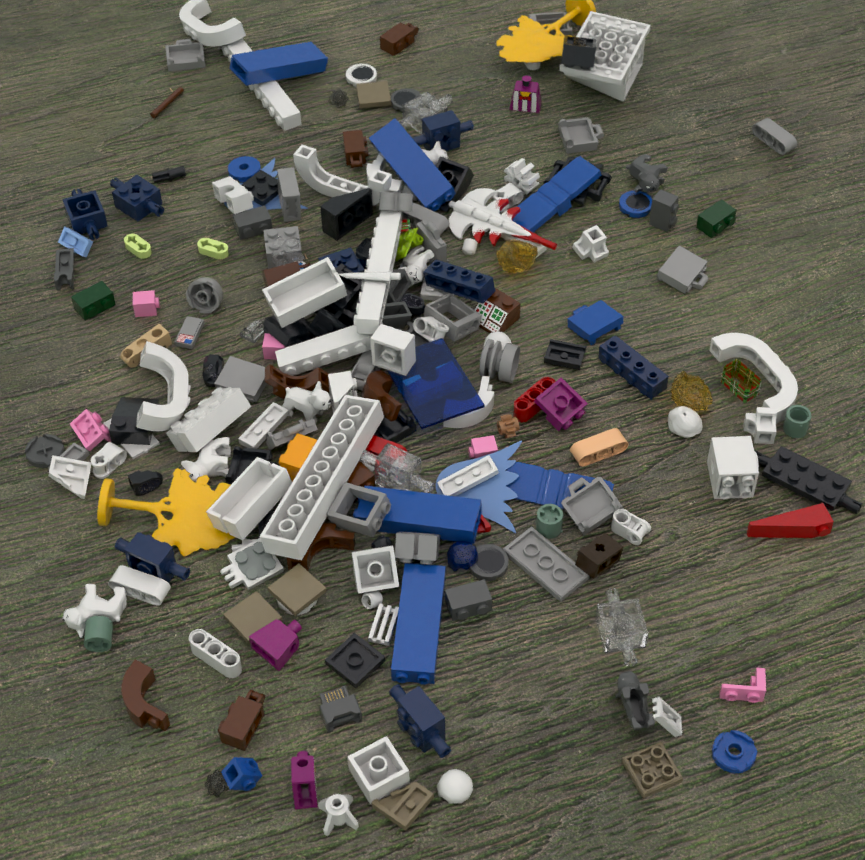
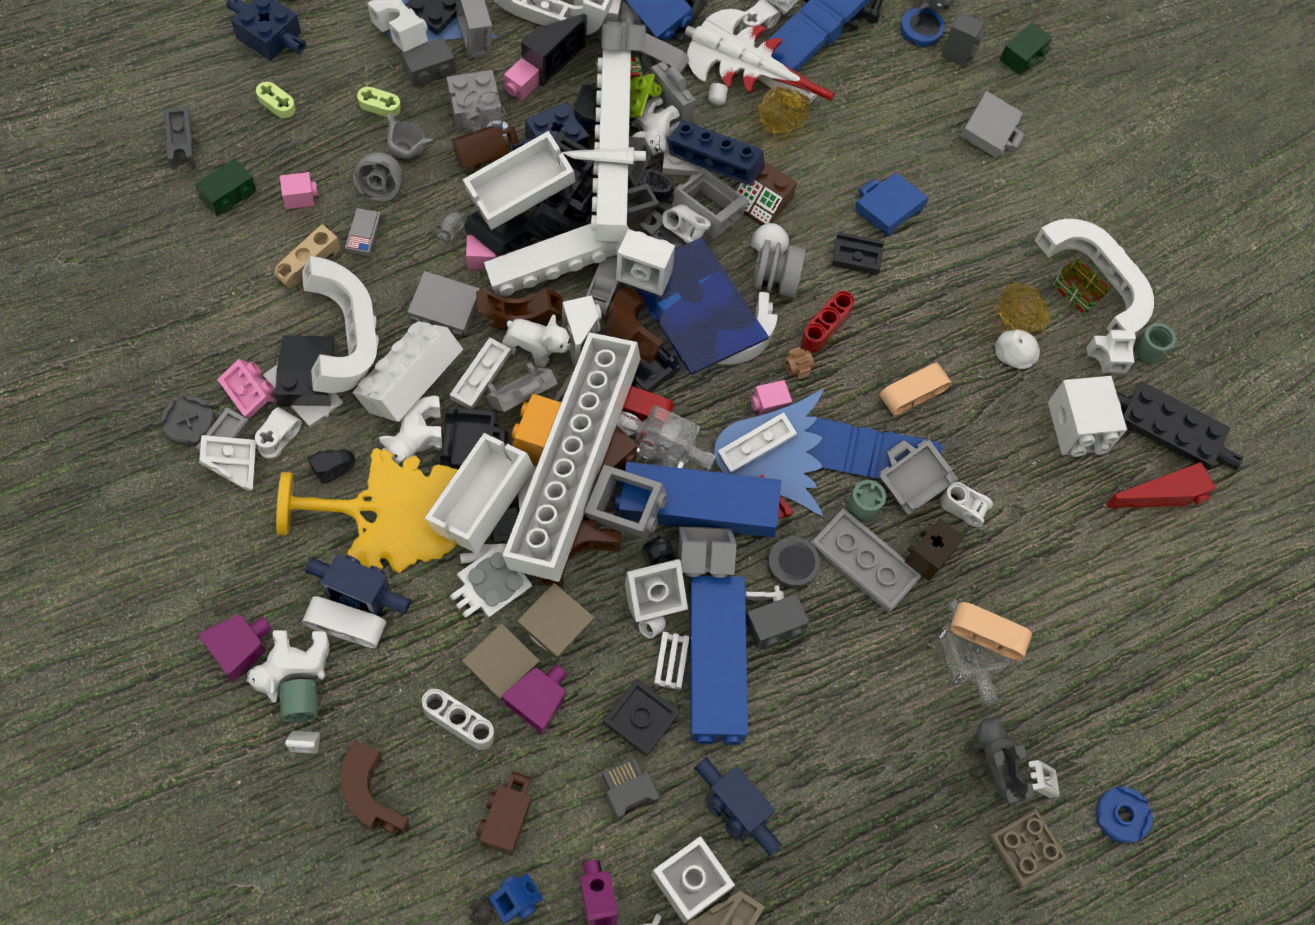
camera: 15 degrees left, 15 degrees up
(57, 595) = (236, 644): none -> magenta torso
(72, 239) = (188, 94): light blue plate -> none
(85, 213) = (197, 51): dark blue brick -> none
(98, 664) = (303, 742): none -> white slope
(212, 368) = (402, 290): black rock -> none
(228, 271) = (405, 139): none -> light grey hair
(320, 234) = (521, 79): none -> bright pink brick
(455, 786) = (788, 891): white hair -> none
(457, 582) = (762, 596): none -> white piece
(462, 555) = (761, 556): clear blue hair -> none
(561, 404) = (864, 330): magenta plate -> none
(591, 244) = (875, 90): white brick -> none
(632, 606) = (991, 631): none -> light nougat beam
(633, 367) = (945, 270): dark blue brick -> none
(752, 693) = (1146, 721): bright pink bracket -> none

